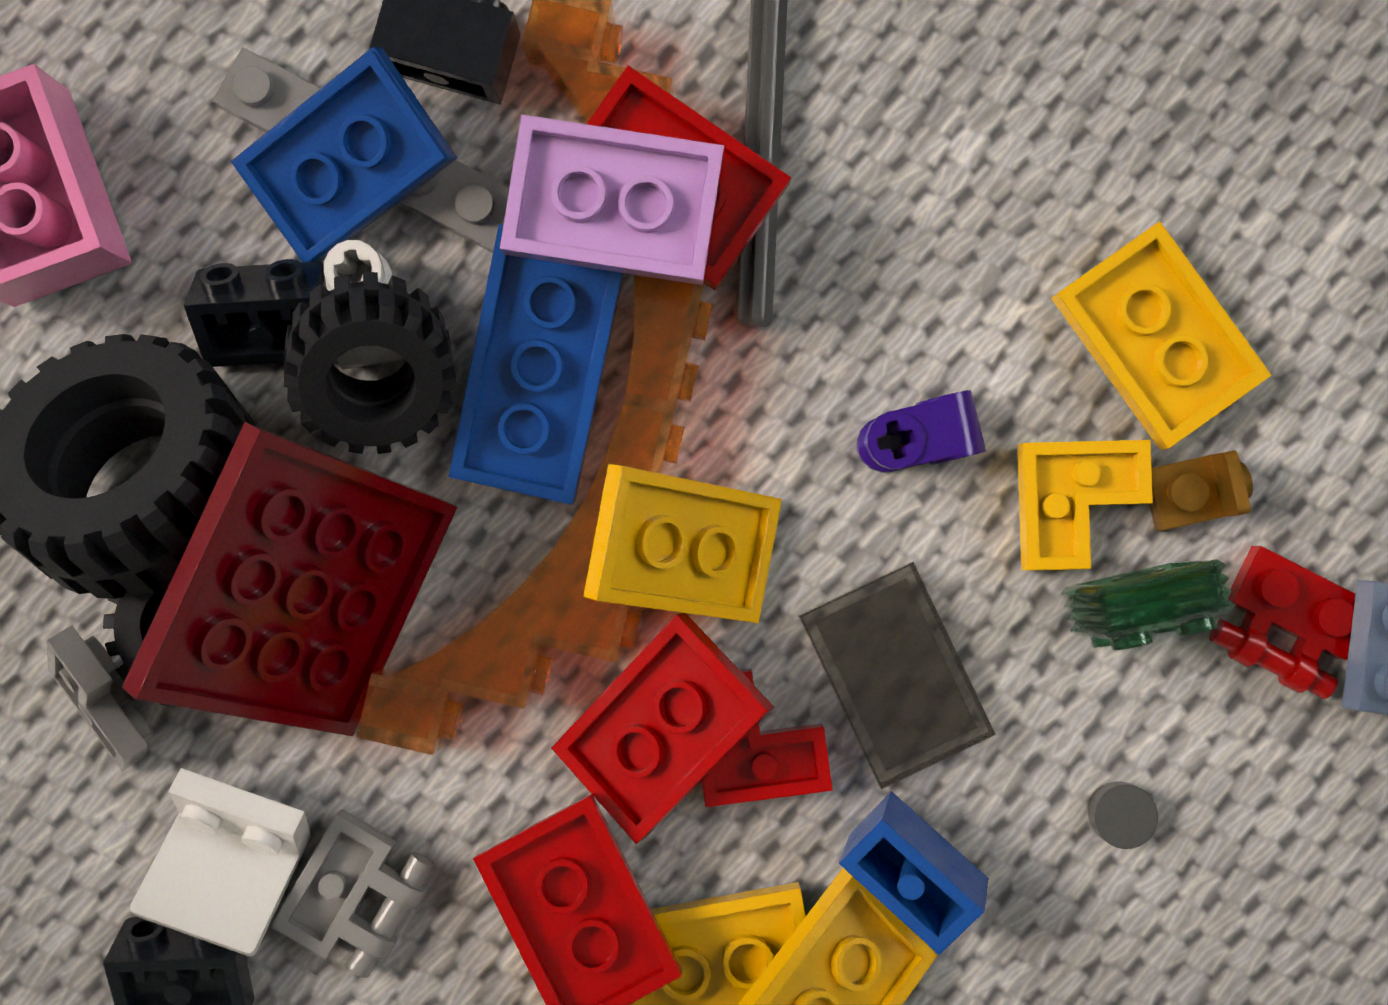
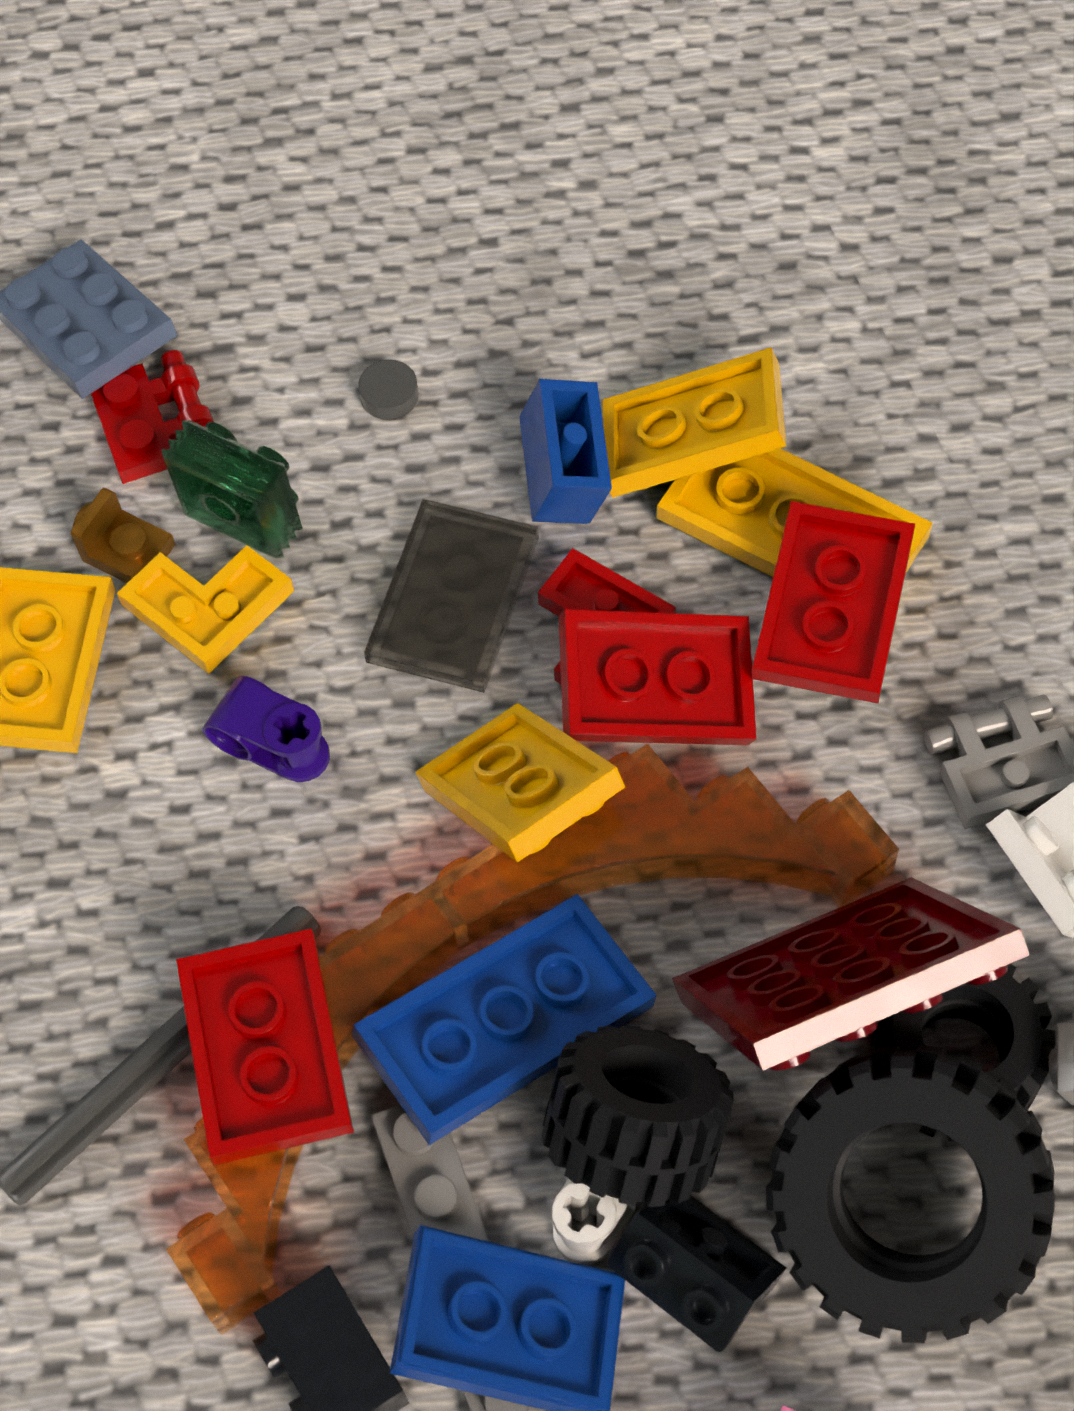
camera: 130 degrees left, 25 degrees down
(611, 199) = (326, 1046): lavender plate -> none

